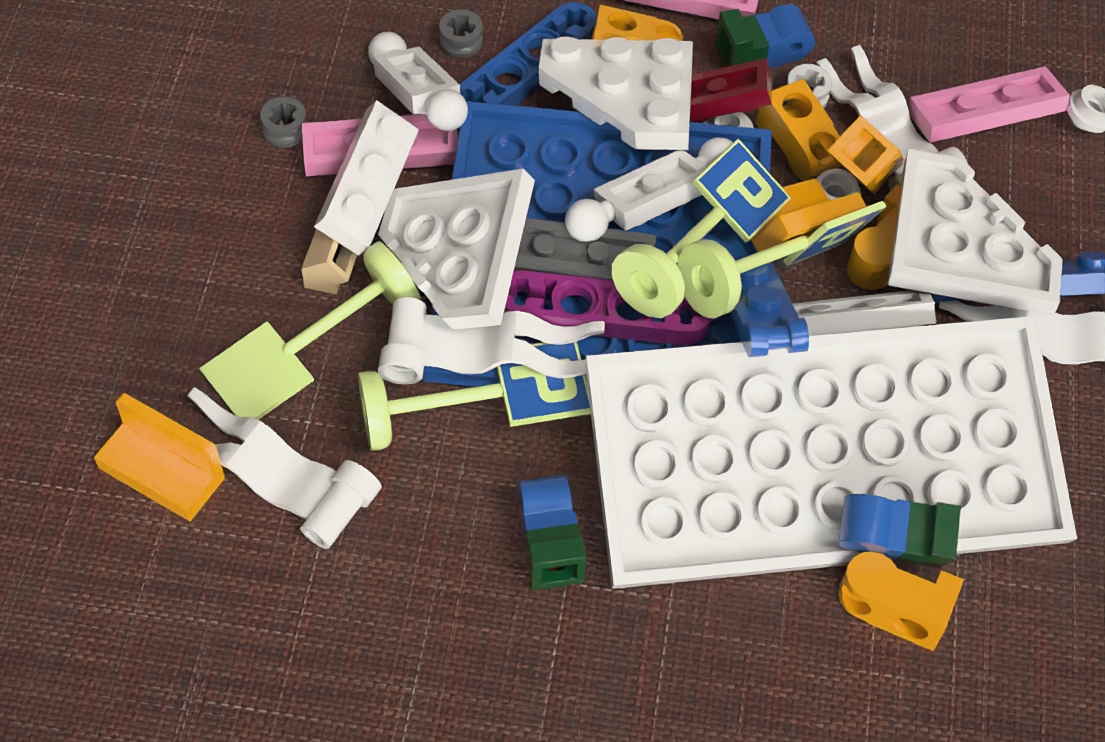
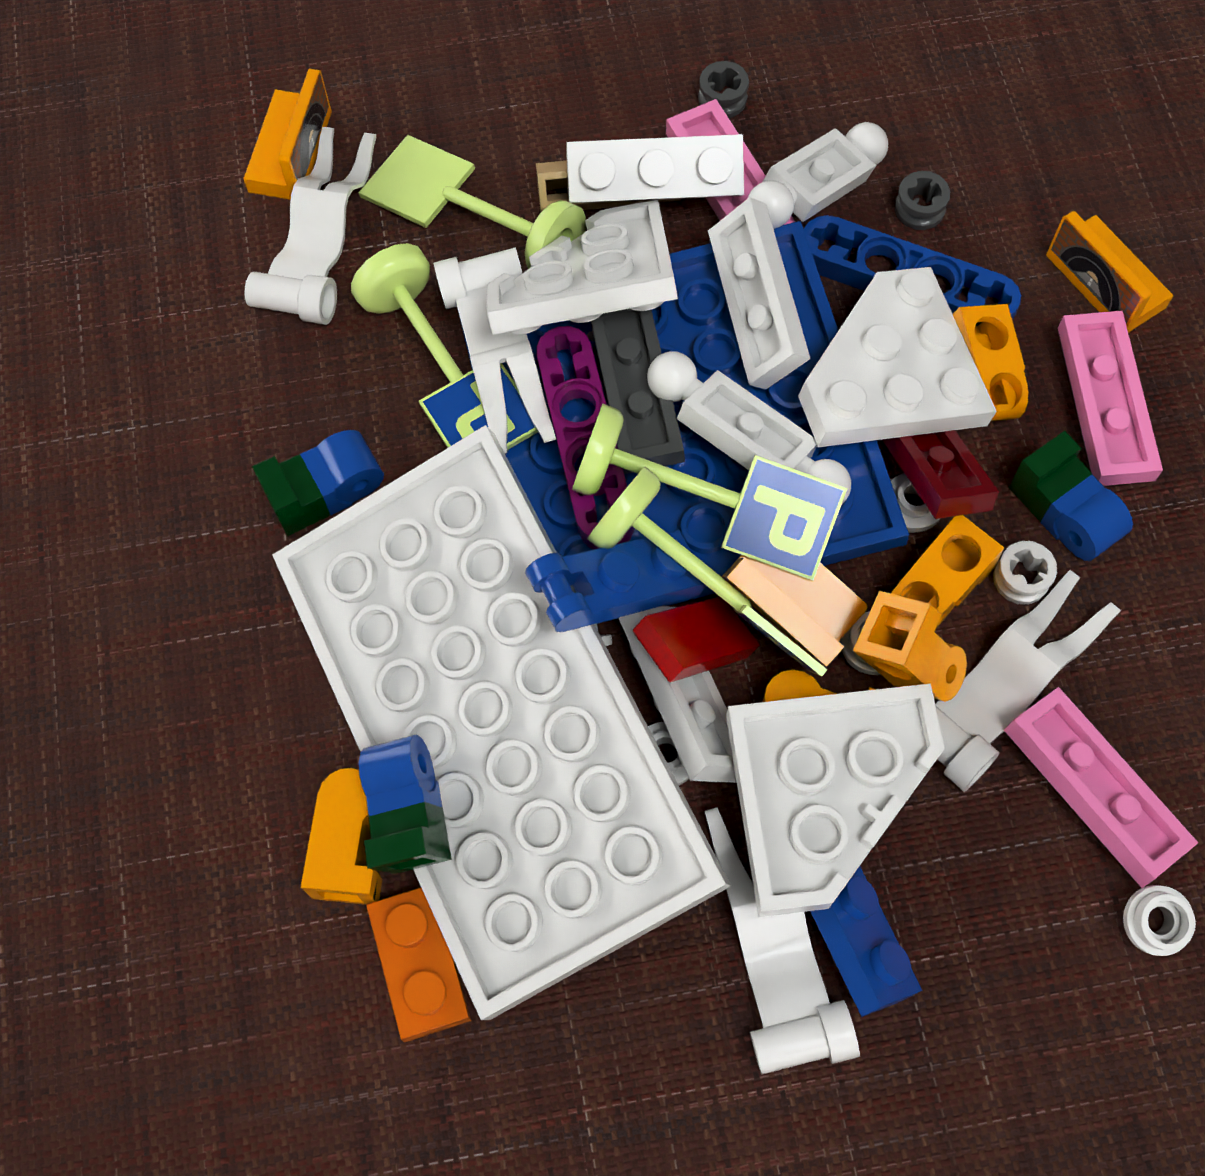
camera: 75 degrees right, 10 degrees up
(532, 141) = (758, 294): none -> white plate
(816, 293) = (695, 638): none -> red tile
(1015, 580) = (417, 966): none -> orange plate

